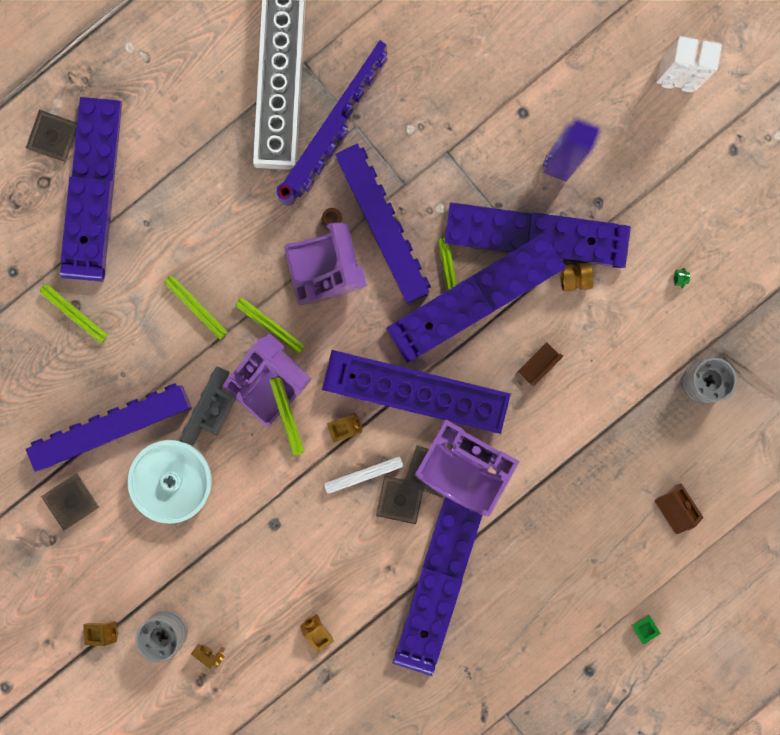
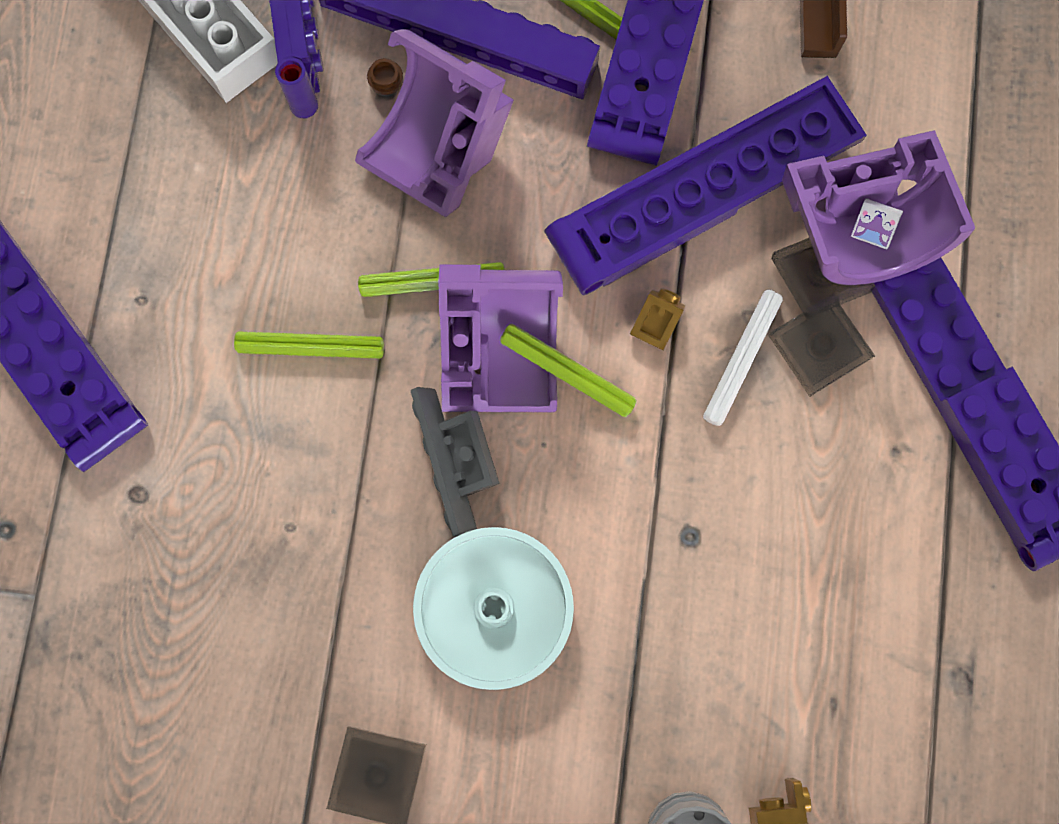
camera: 45 degrees left, 10 degrees down
(73, 313) = (143, 506): lime axle -> none
(108, 428) = (334, 620): dark purple brick -> none
(316, 633) = (894, 628): pearl gold bracket -> none
(464, 474) = (876, 223): none -> tile

